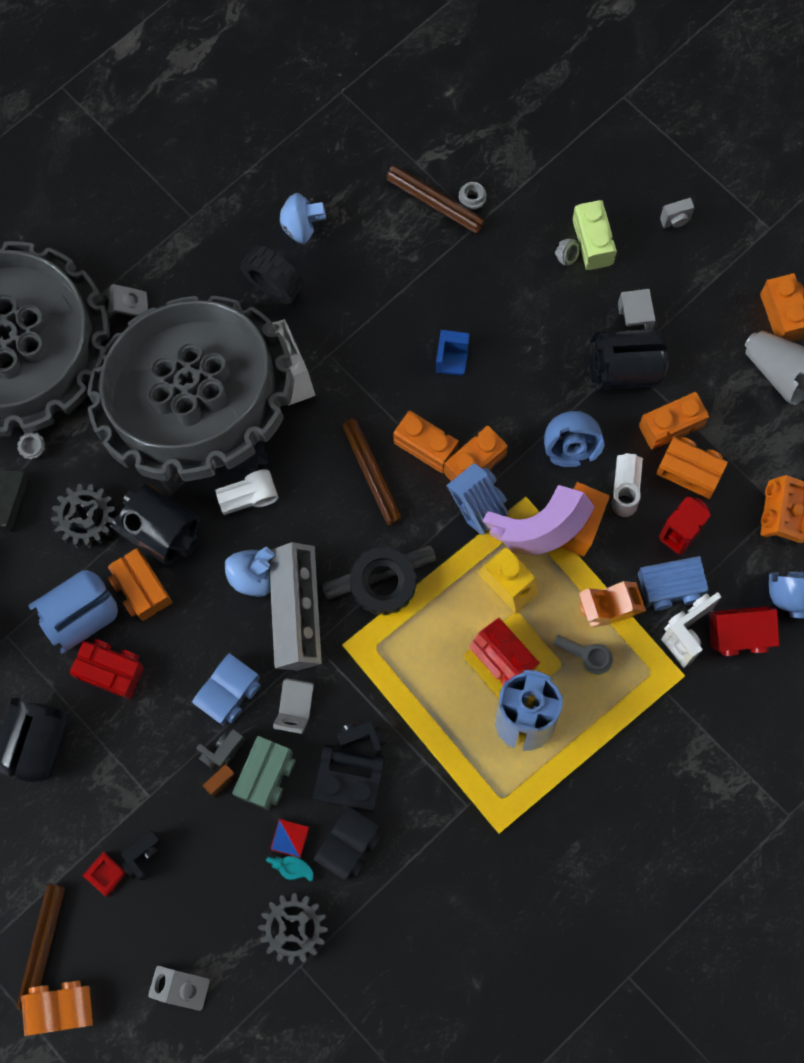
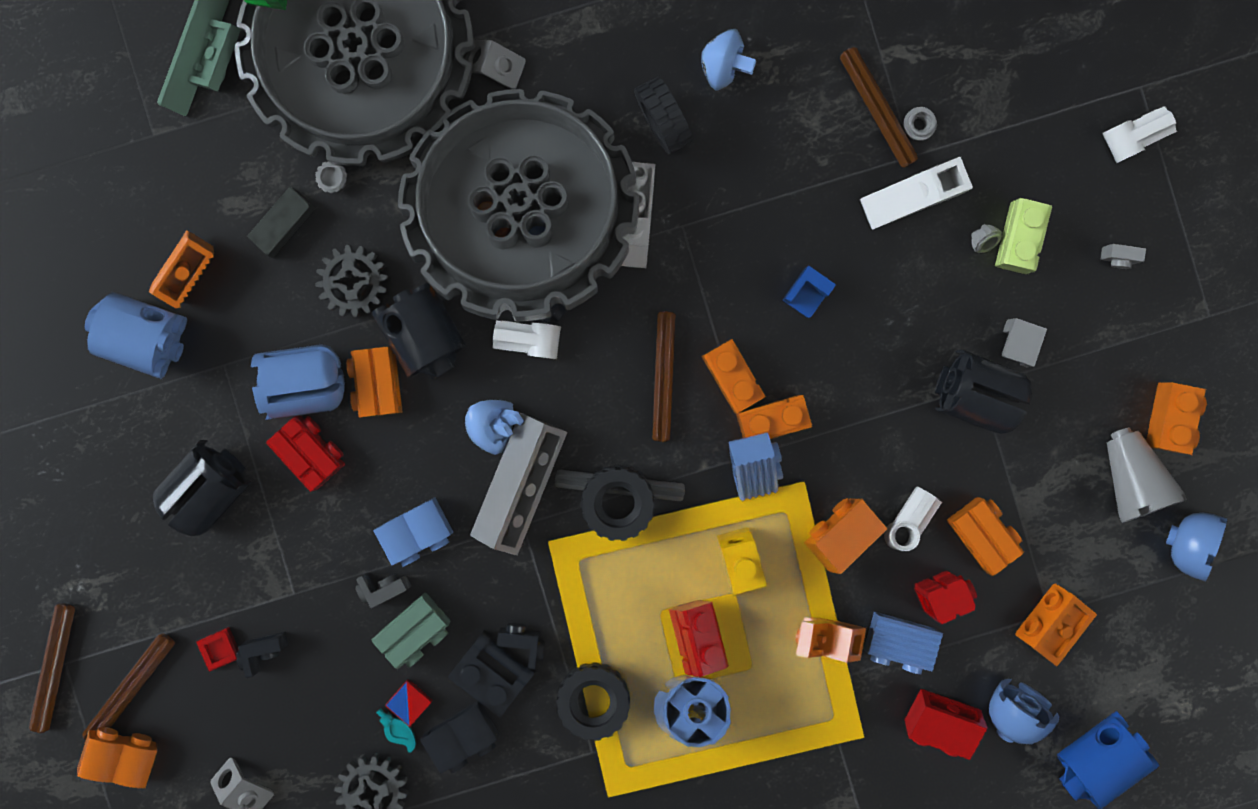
camera: 25 degrees right, 15 degrees up
(220, 781) = (366, 618): dark orange tile -> none
(294, 705) = (472, 581): light grey bracket -> none
(468, 753) = (586, 726): none -> black tyre
(497, 241) = (916, 193): none -> white slope
(548, 529) = (804, 543): lavender arch -> none
(573, 438) = (883, 445): medium blue cylinder -> none
(596, 658) = (786, 680): dark grey plate -> none
(635, 132) = (1133, 136): none -> white piece
(673, 420) = (994, 479): orange brick -> none
(685, 643) = (883, 693): white bracket -> none

